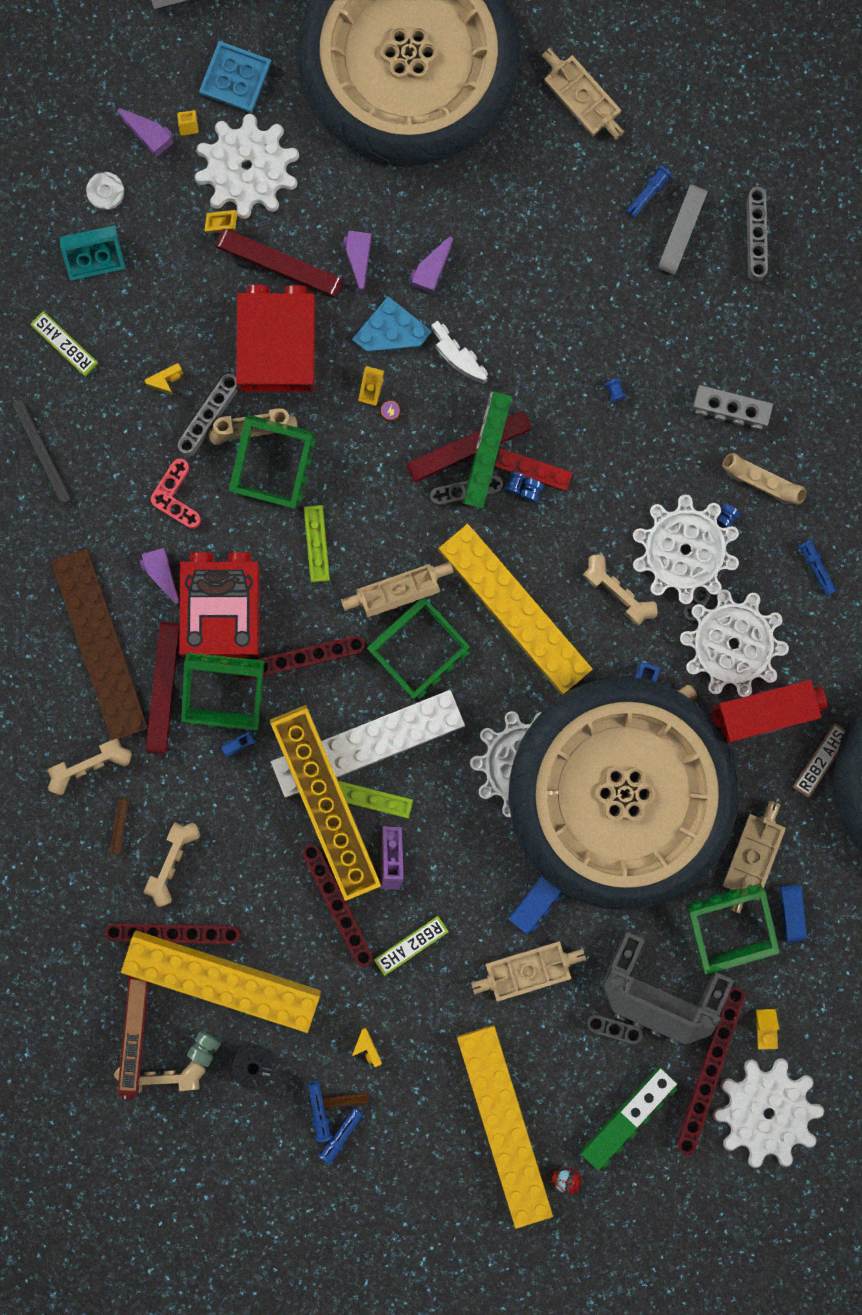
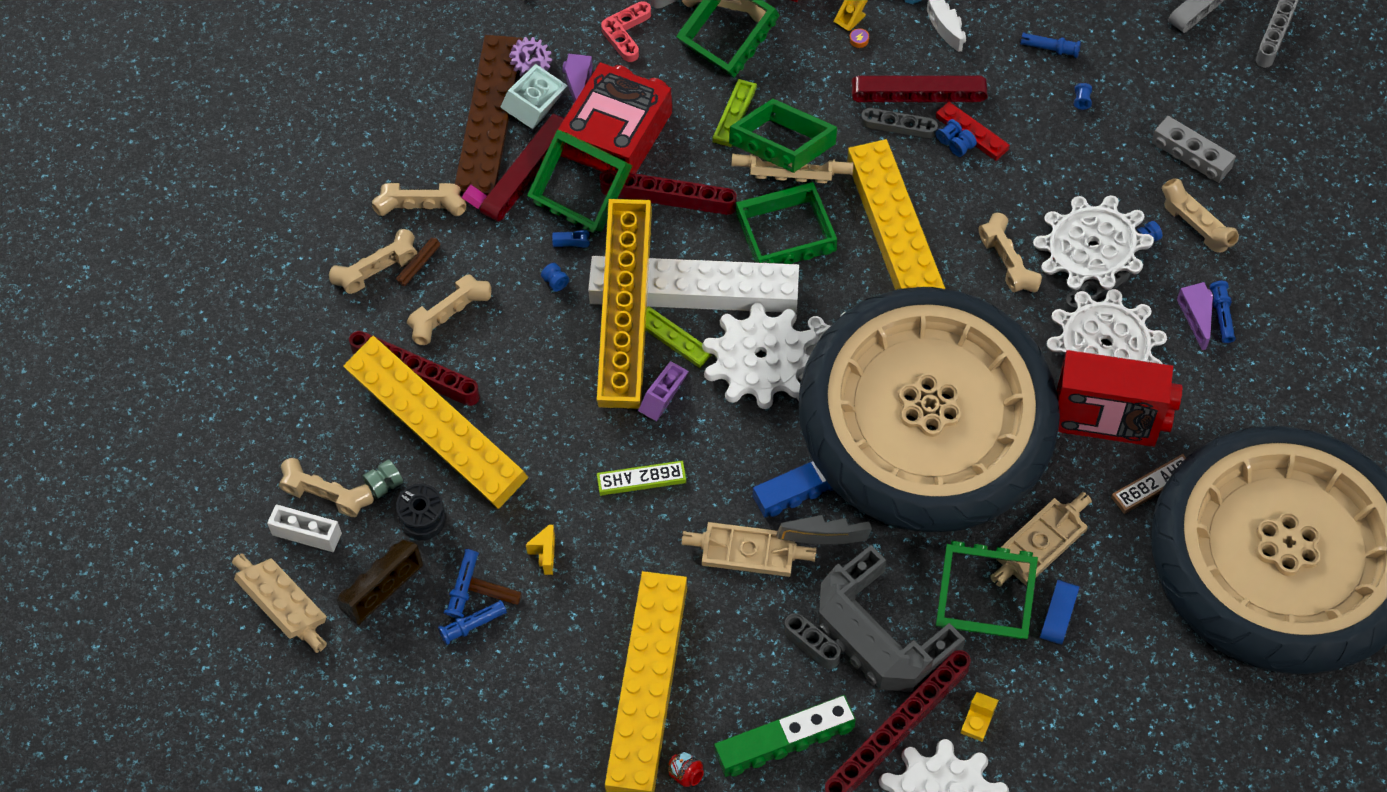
camera: 30 degrees right, 25 degrees down
(71, 871) = (353, 277): none -> tan plate
(107, 563) = (522, 52): none -> lavender gear
(132, 611) = (533, 96): none -> light aqua slope
(133, 1038) = (320, 434): brick -> none
(134, 741) = (474, 196): none -> dark pink tile
(165, 1123) = (304, 528): none -> white brick
(179, 1191) = (281, 600): none -> tan plate
(245, 790) = (556, 278): none -> blue wheel
(250, 1139) = (380, 581): none -> dark brown slope
(330, 898) = (590, 417): dark red beam -> none
(381, 535) = (821, 132): none -> green window
(460, 810) = (757, 375): none -> white plate
(487, 449) = (934, 87): green brick -> none
(574, 342) = (1060, 46): none -> blue pin
(577, 934) = (817, 531): none -> dark grey slope
(797, 576) = (1197, 308): none -> medium lavender slope

